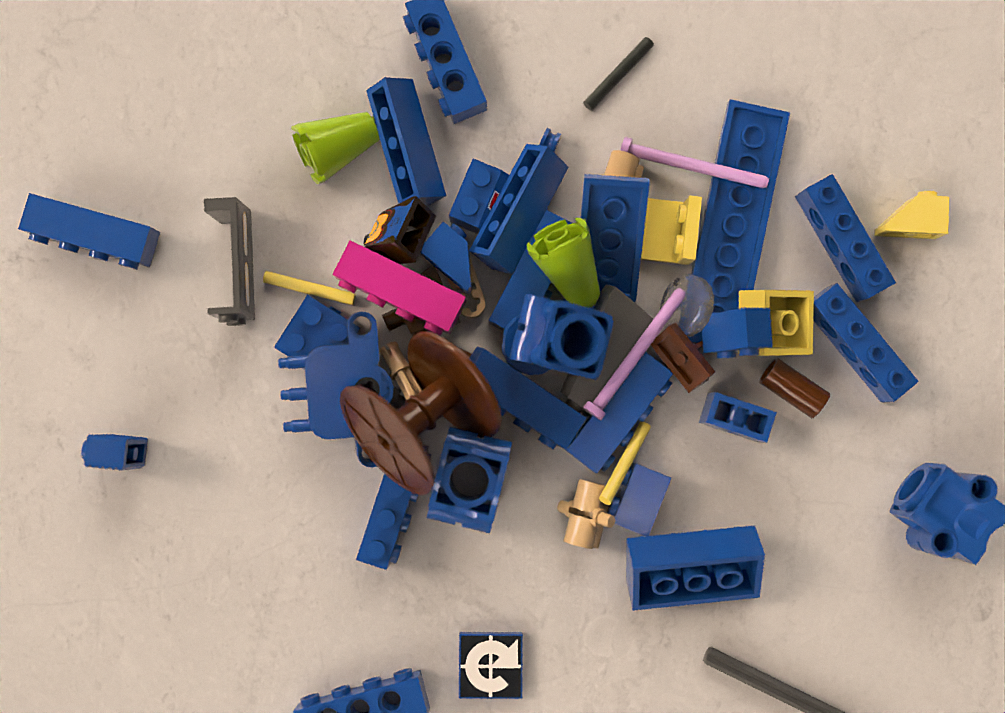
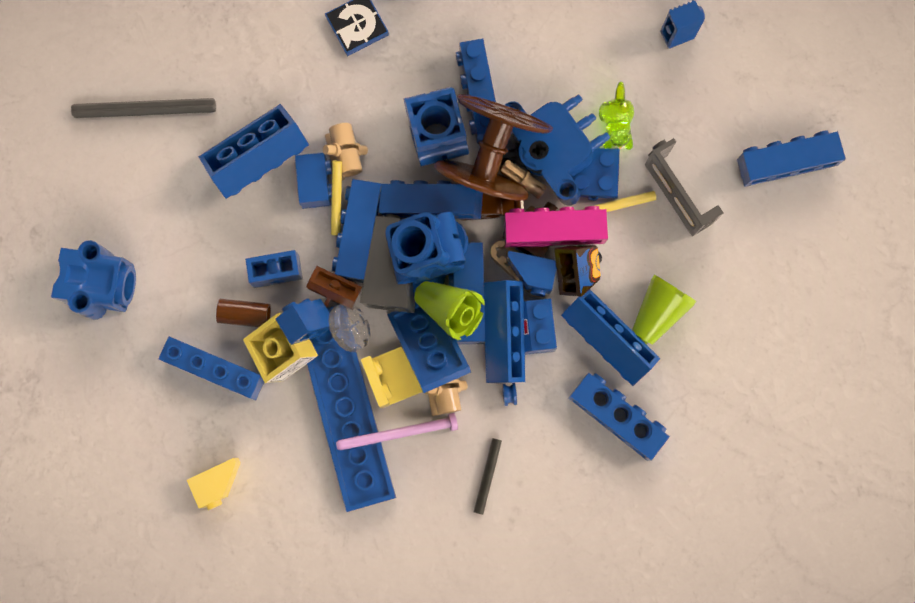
camera: 155 degrees right, 5 degrees down
(254, 385) = (618, 115): none -> clear neon green animal
(638, 350) = (376, 219): lavender bar -> none
(845, 239) = (259, 438): blue brick -> none

